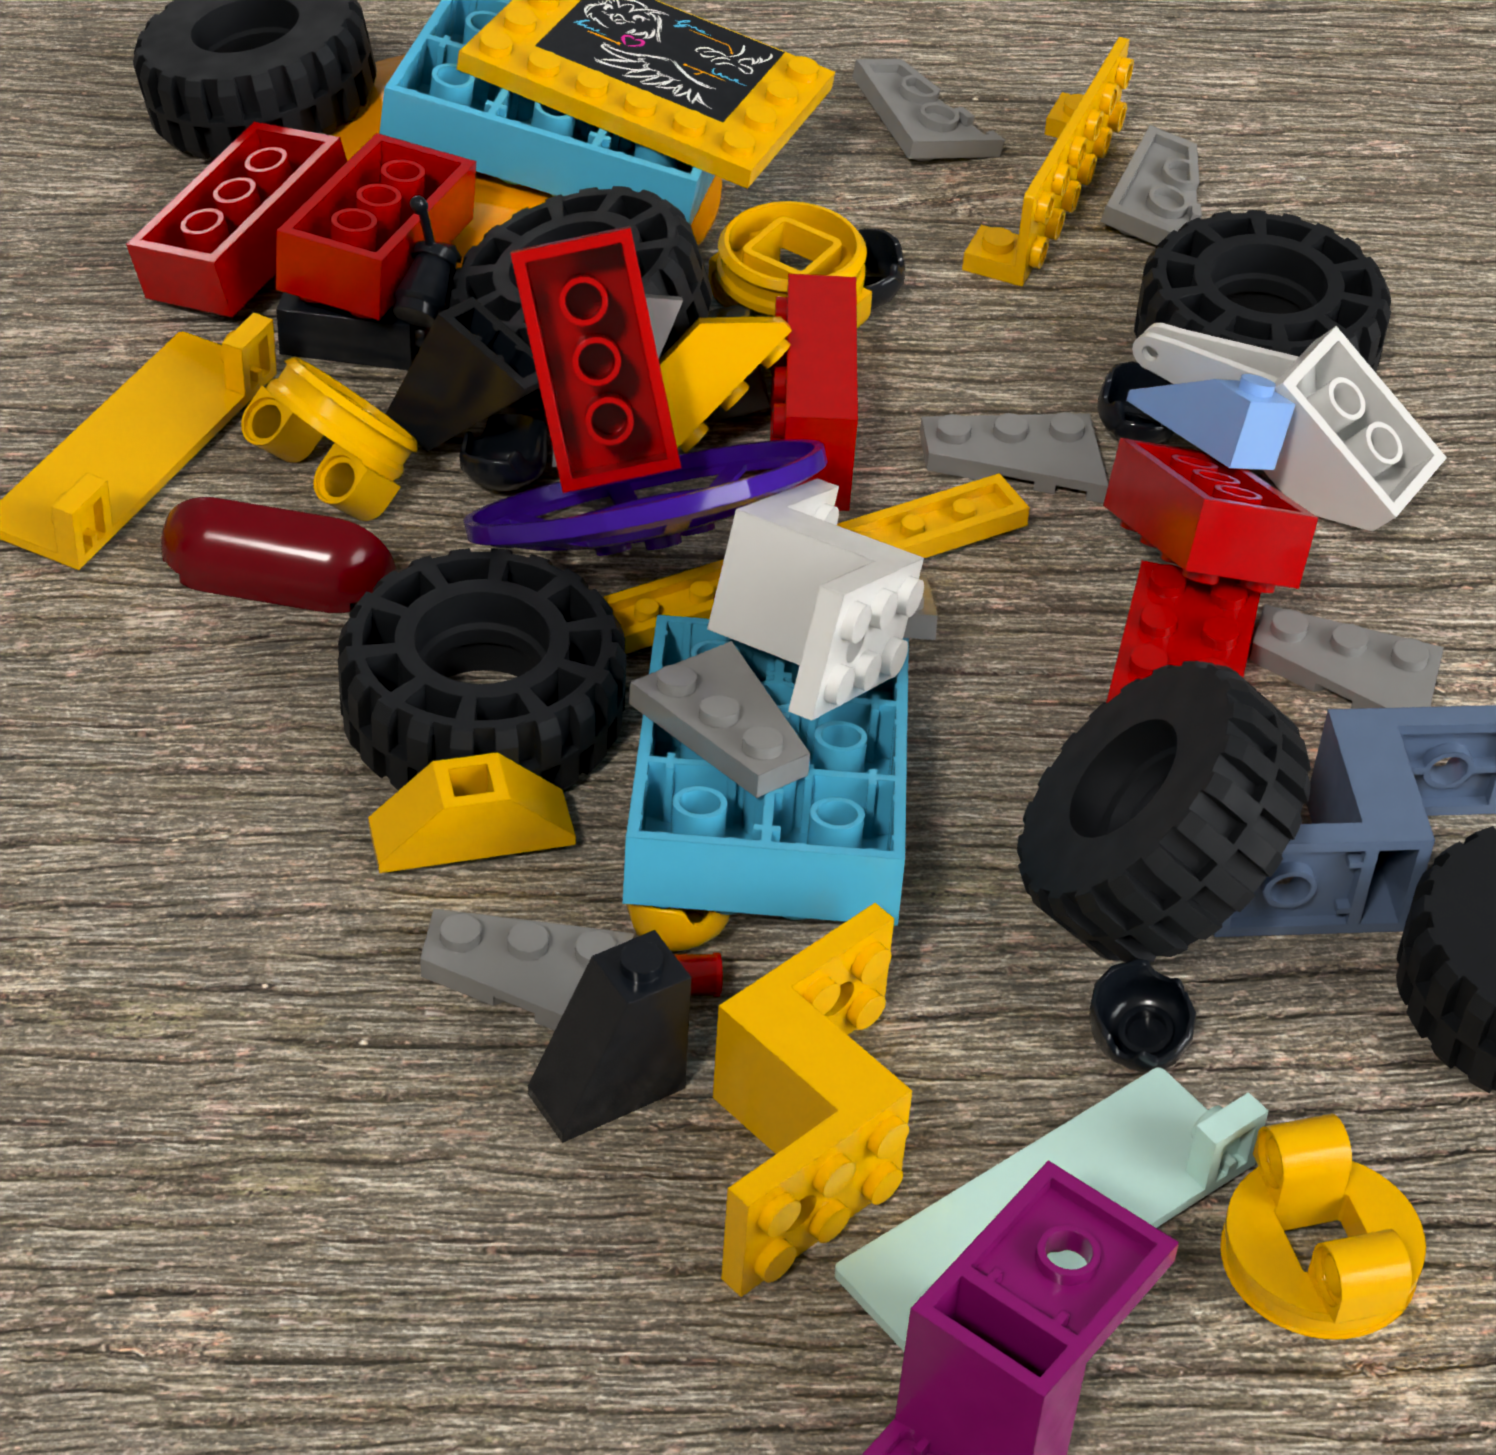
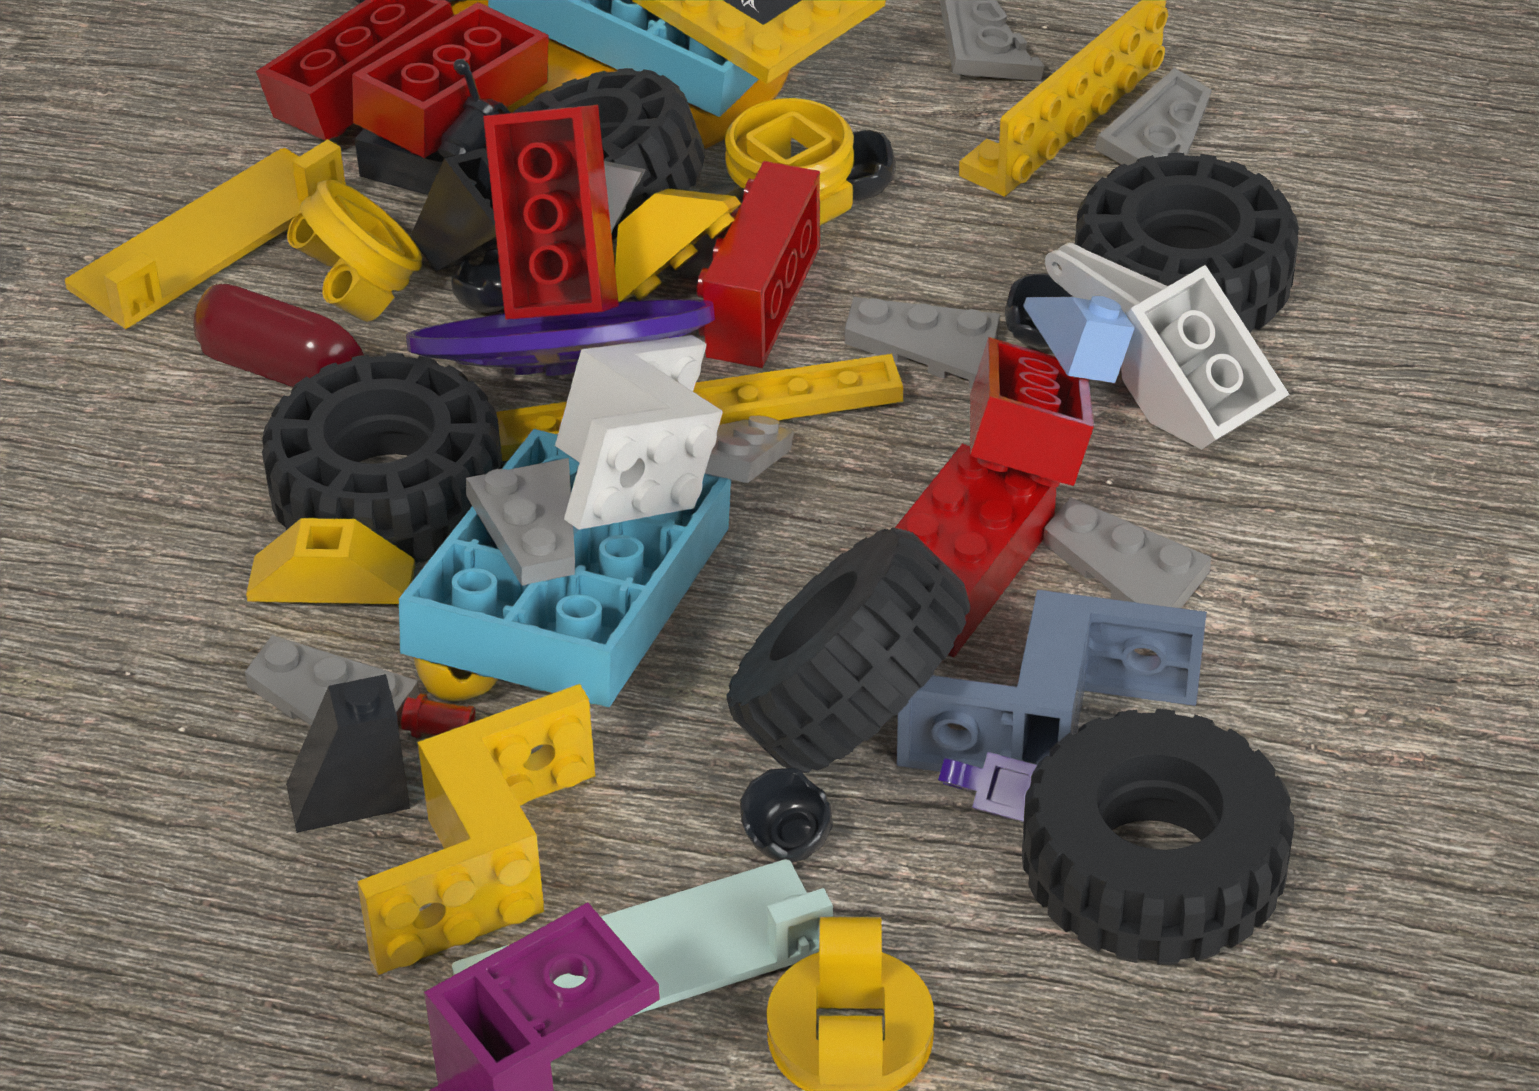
camera: 20 degrees right, 0 degrees up
(1355, 939) = (998, 785): none -> plate

